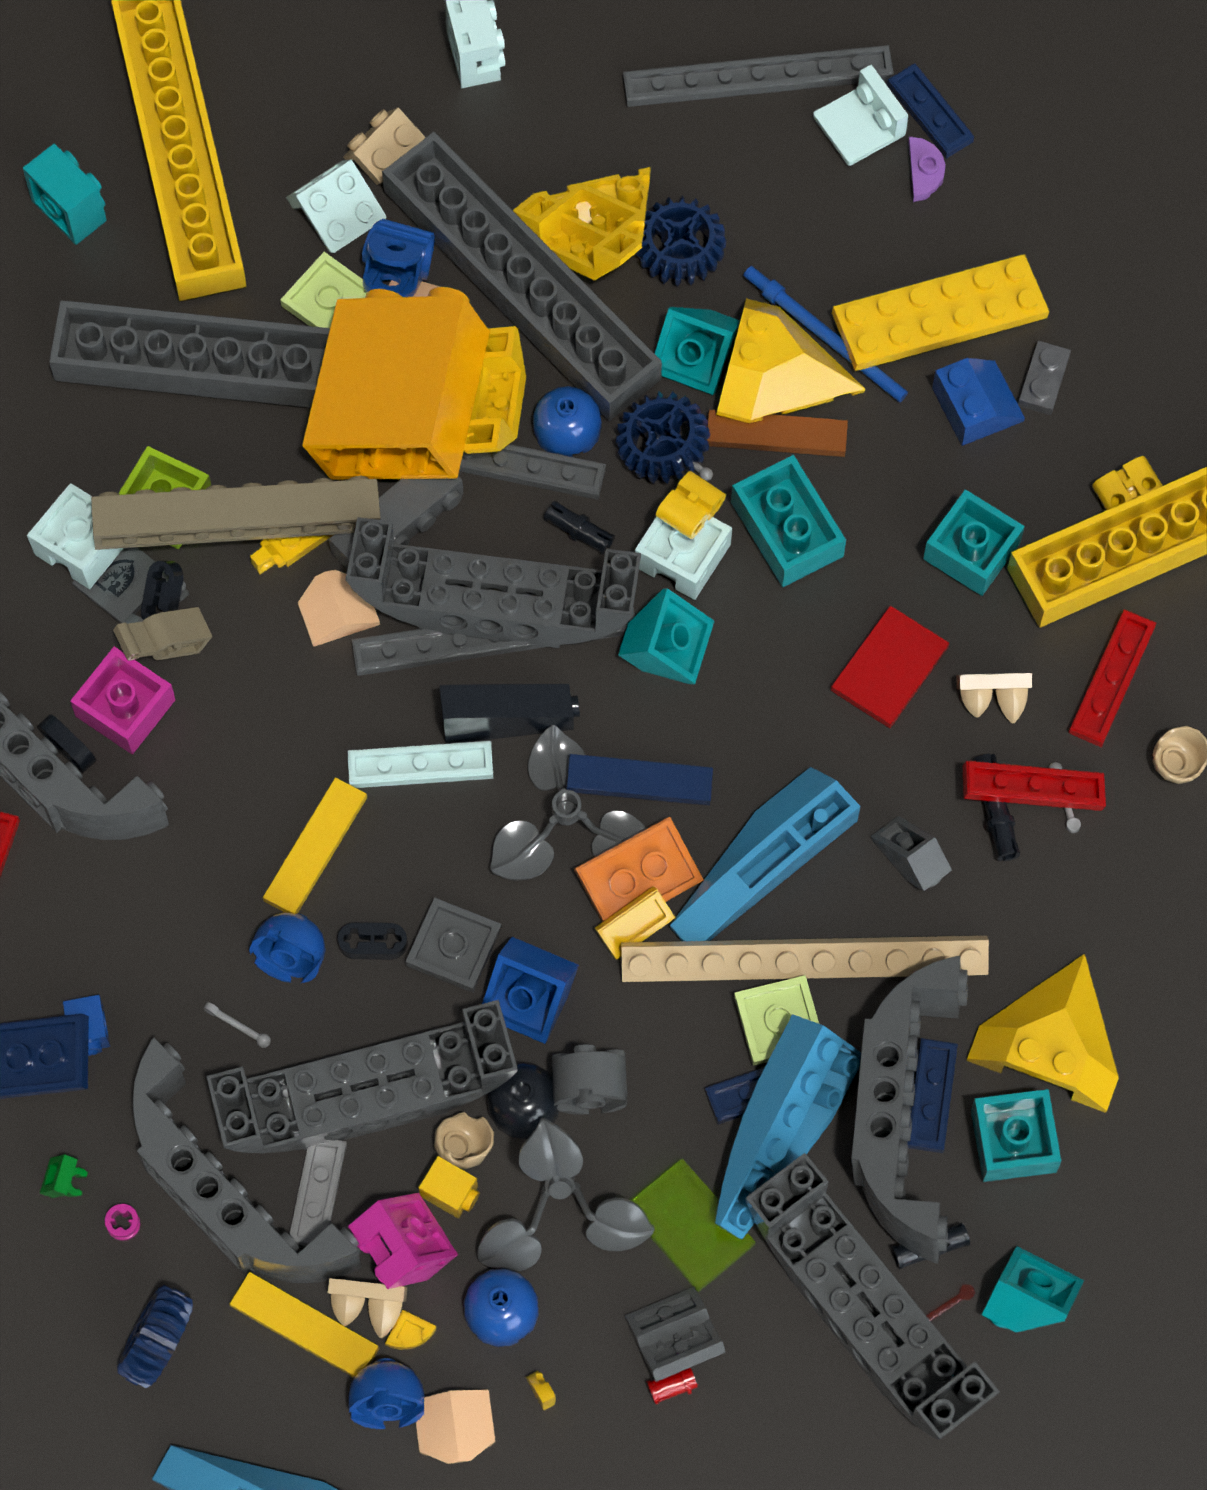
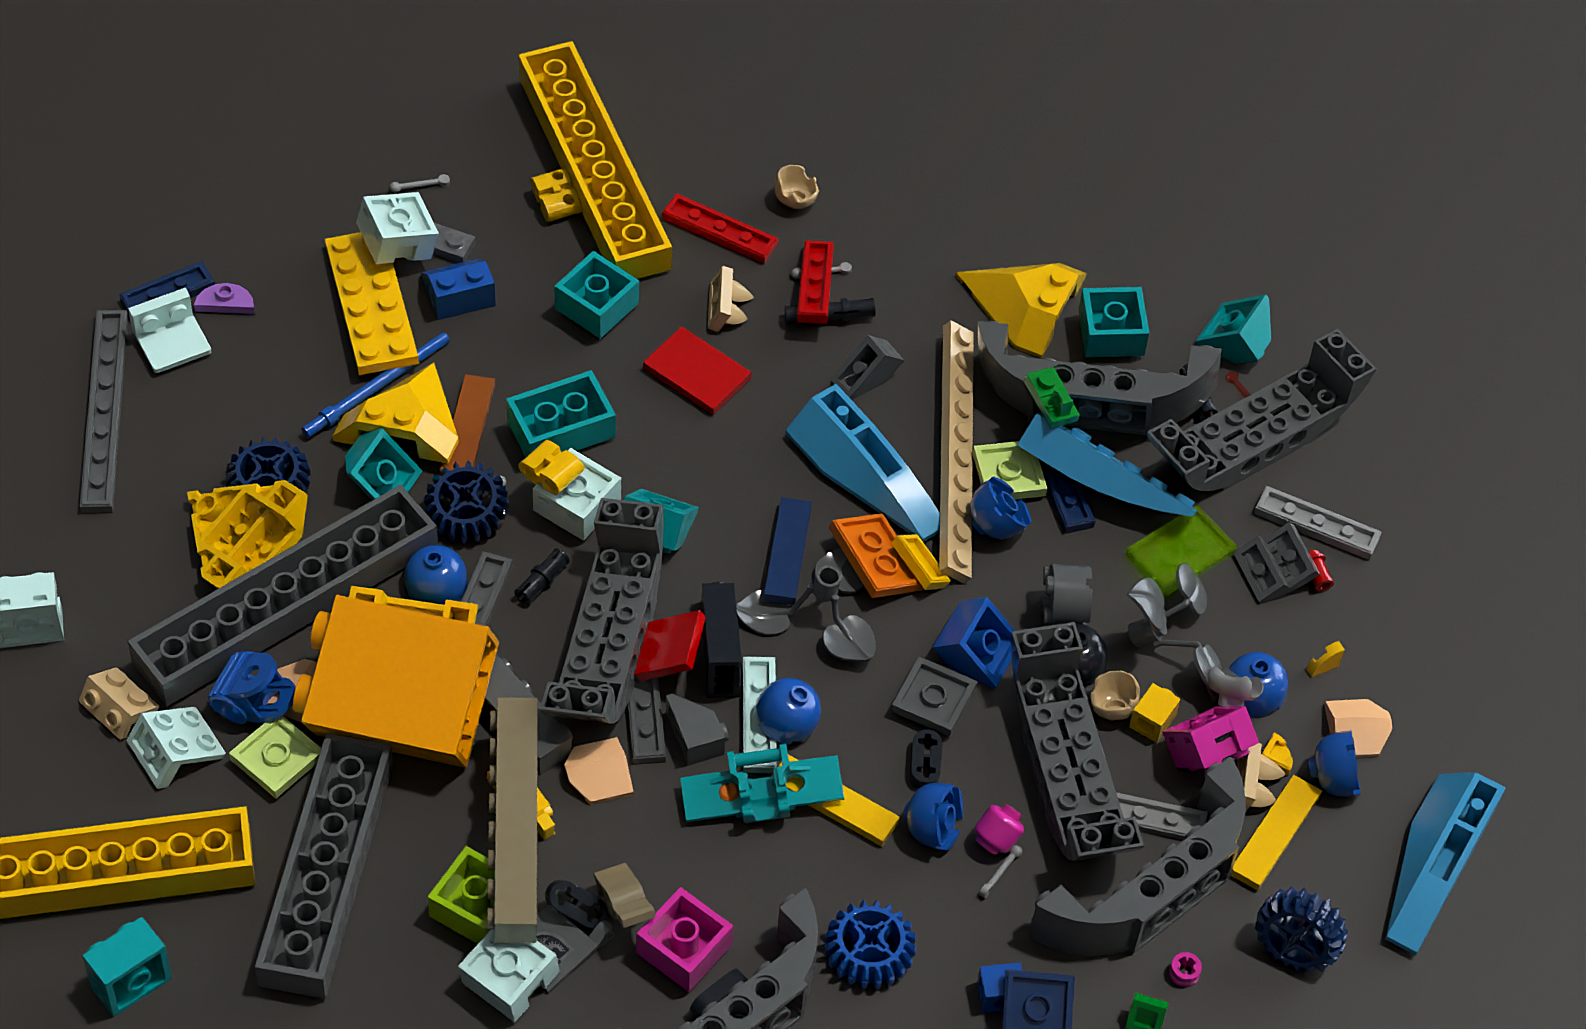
camera: 90 degrees left, 15 degrees down
(114, 911) = (874, 961): none -> blue gear
(277, 1015) = (999, 829): none -> dark pink head
(303, 767) = (761, 798): none -> teal piece
(387, 695) = (696, 729): none -> dark grey slope
(416, 788) = (788, 710): none -> blue cylinder
(473, 1267) = (1232, 688): none -> light grey piece
(480, 655) = (670, 645): none -> red tile
(709, 1005) = (997, 511): none -> blue cylinder
(748, 1390) = (1318, 522): none -> light grey tile
(846, 1041) = (1051, 397): none -> green hinge
(1028, 315) = (397, 227): none -> light aqua piece
(1140, 369) = (443, 180): none -> light grey hinge

